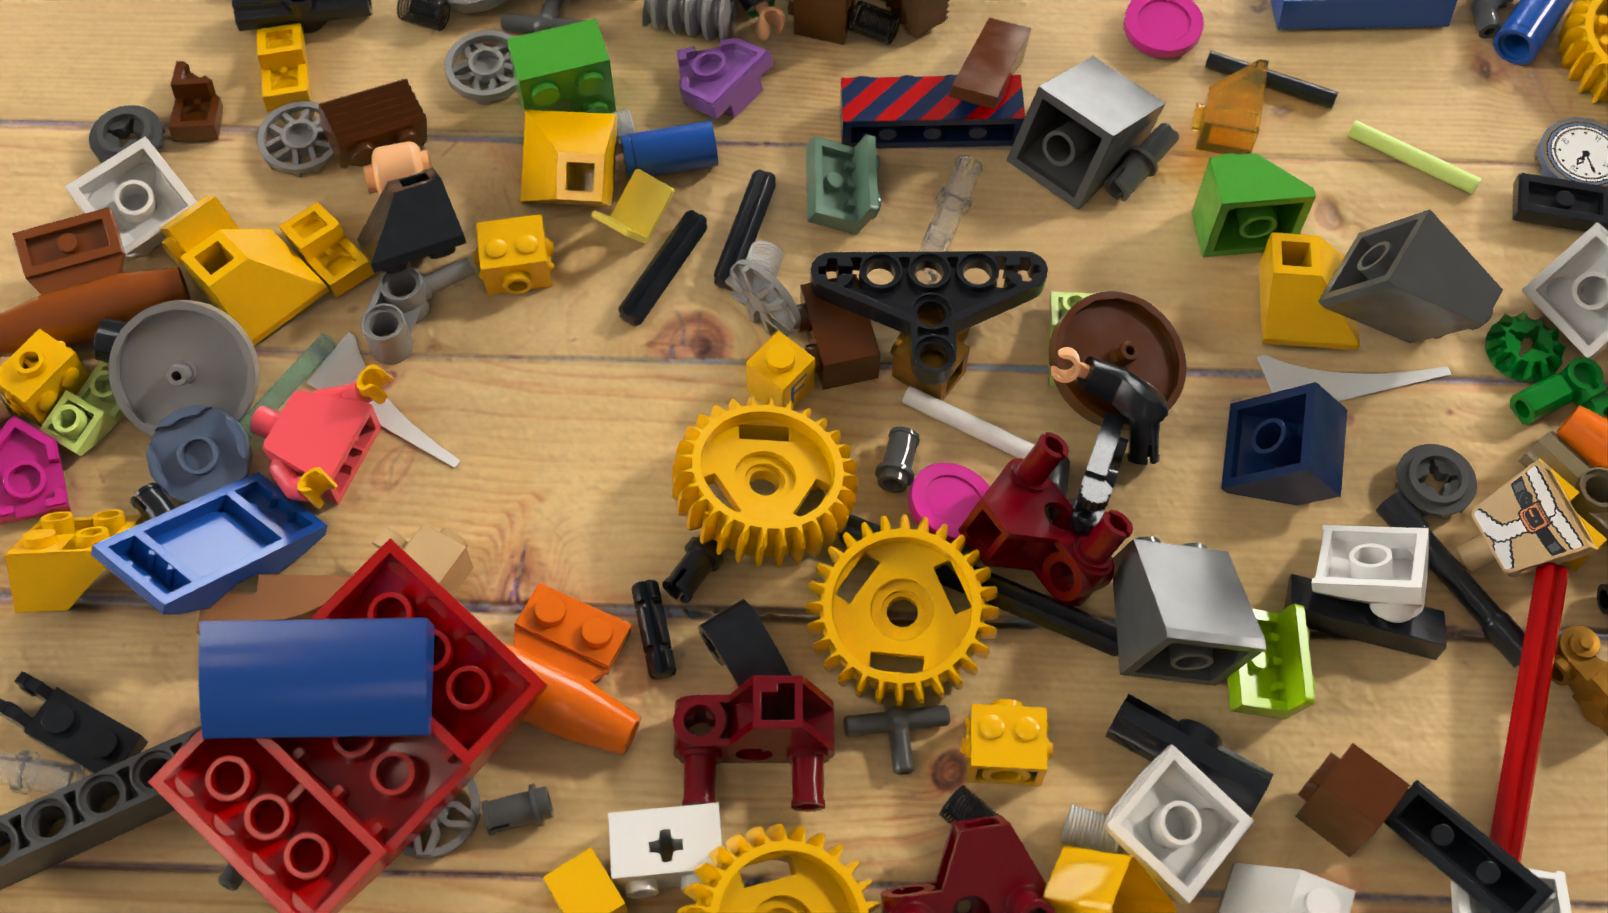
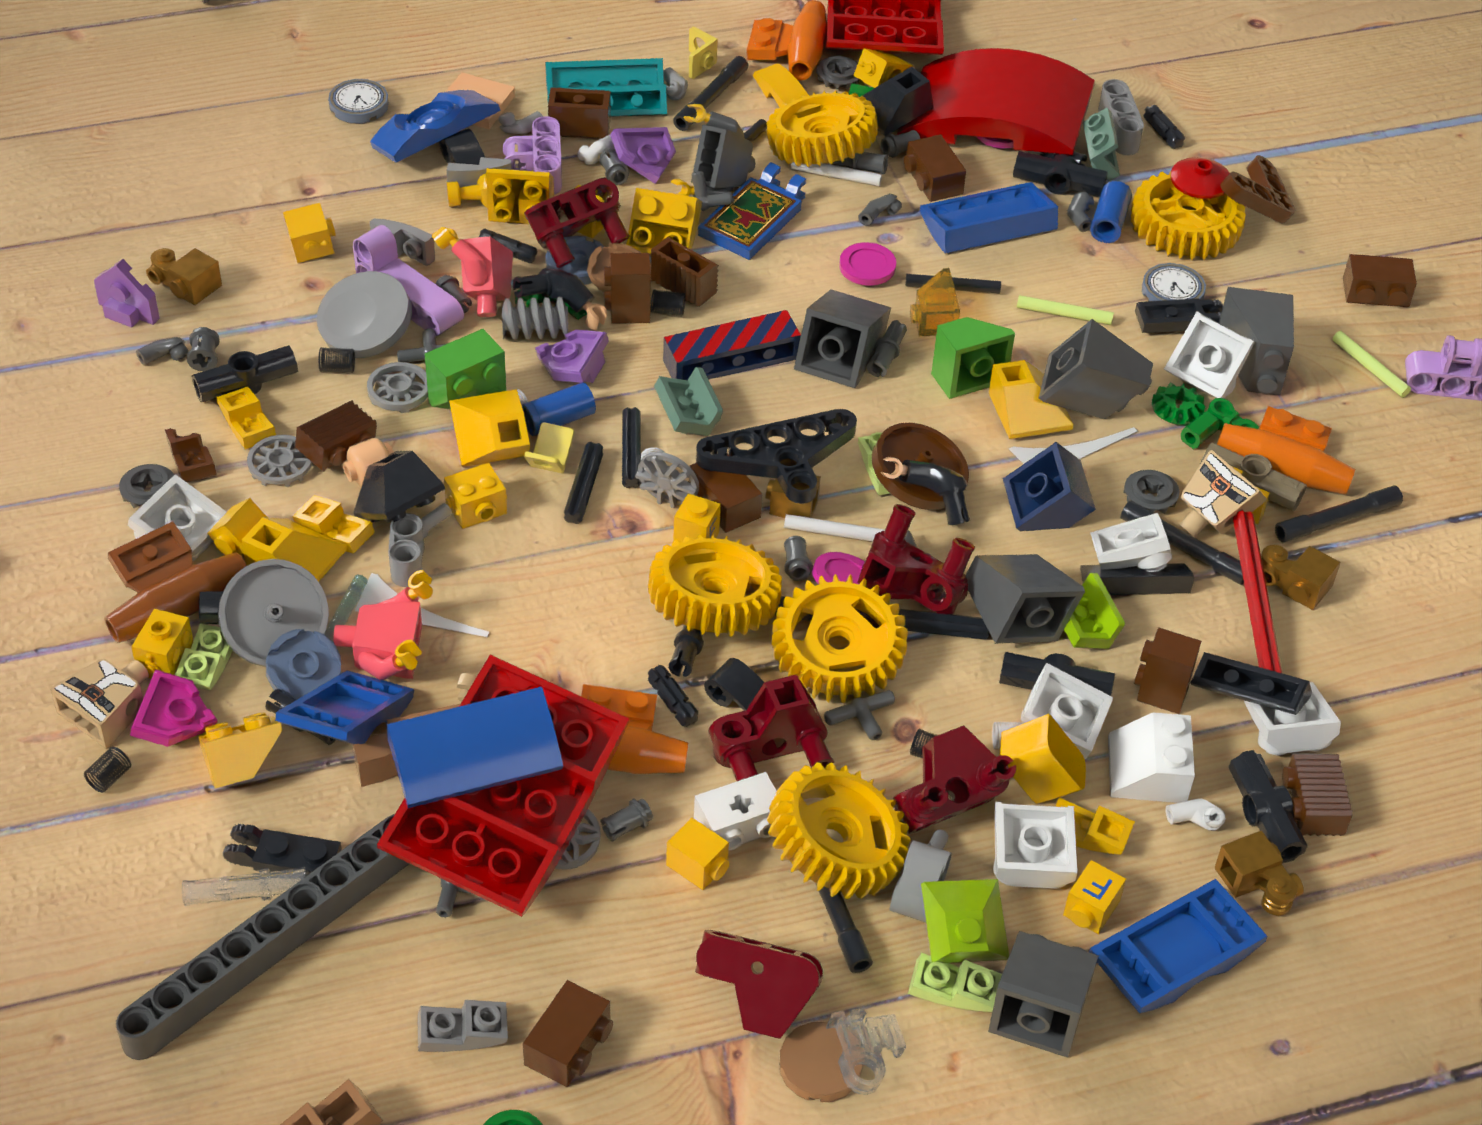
camera: 20 degrees left, 15 degrees down
(952, 203) = (769, 398): clear pin -> none
(991, 63) = (766, 303): reddish brown slope -> none
(1006, 743) = (938, 700): yellow head -> none
(1099, 475) = (936, 529): black hinge -> none

